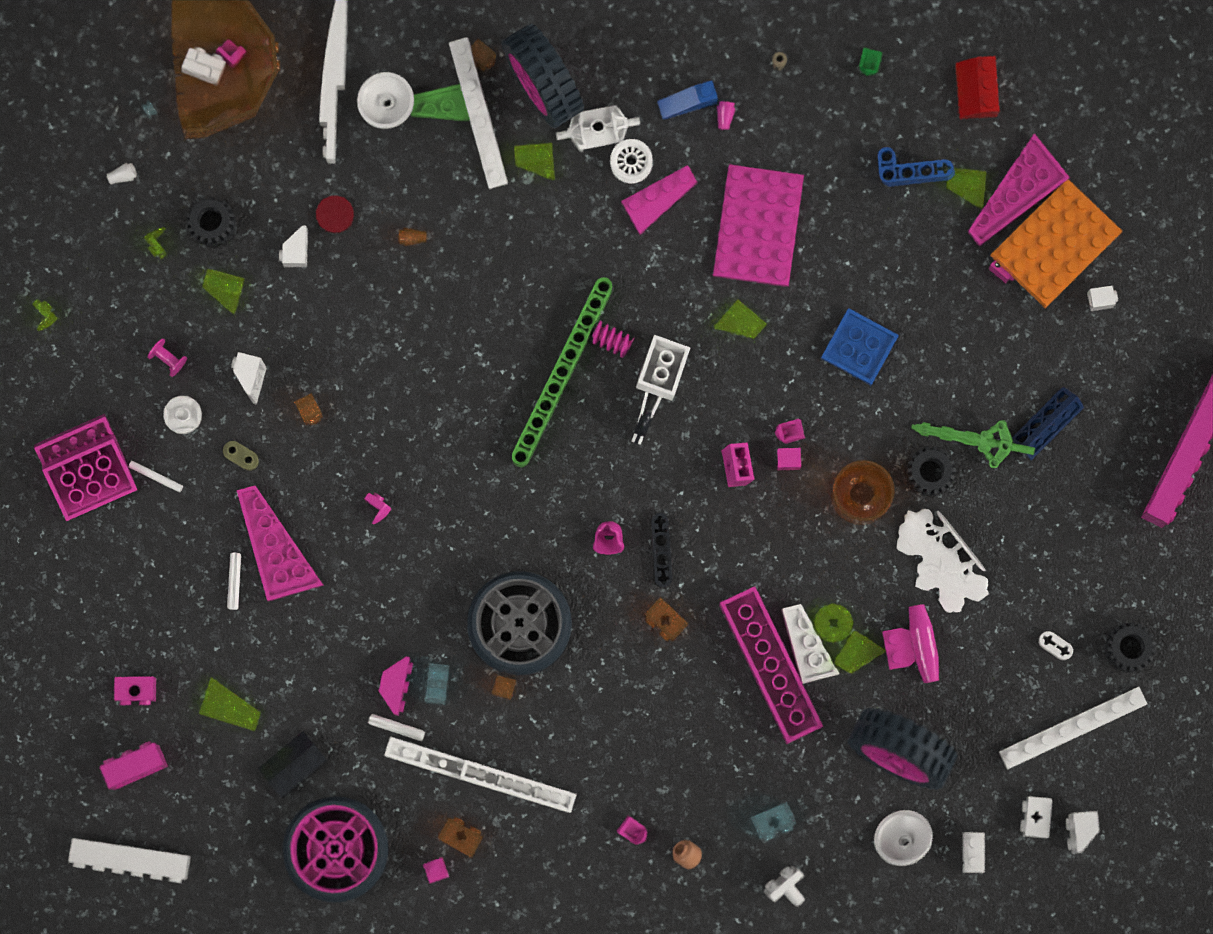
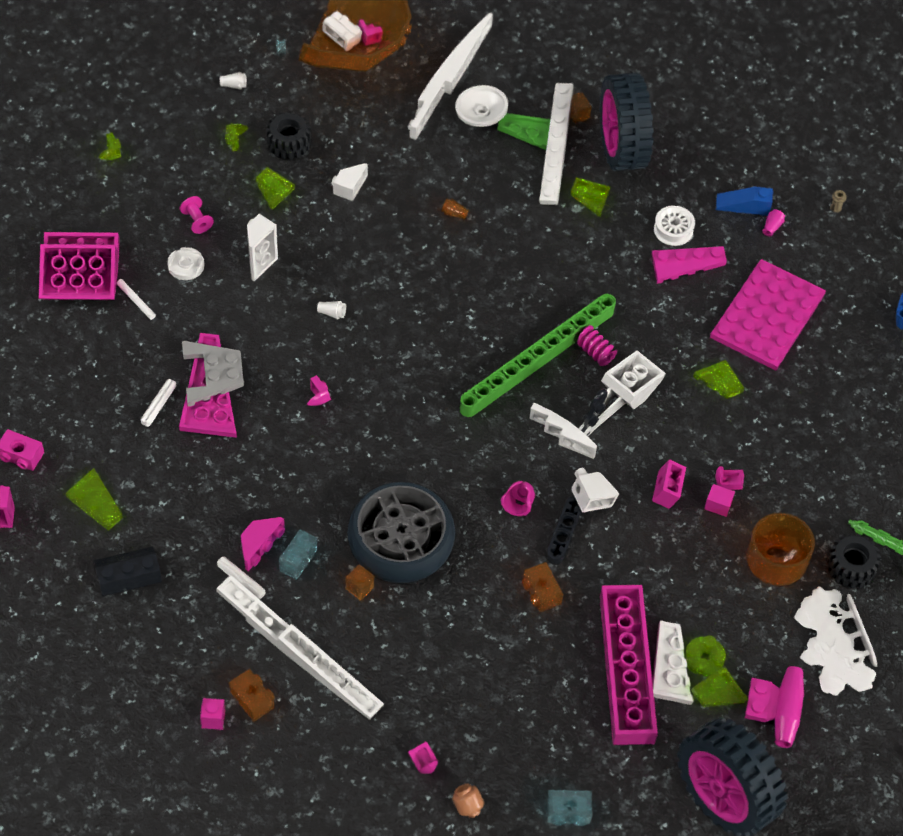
camera: 20 degrees right, 25 degrees down
(240, 455) = (216, 309): olive plate -> none
(277, 524) = (222, 370): none -> light grey wing
(309, 409) = (297, 297): clear orange brick -> none
(334, 214) = (396, 171): dark red tile -> none
(335, 869) = (116, 620): wheel -> none
(347, 406) = (334, 309): none -> white cone
(584, 135) = (641, 192): white plate -> none
(626, 449) = (568, 434): none -> white slope
(671, 502) = (593, 491): none -> white torso
(859, 346) = (824, 438): blue plate -> none

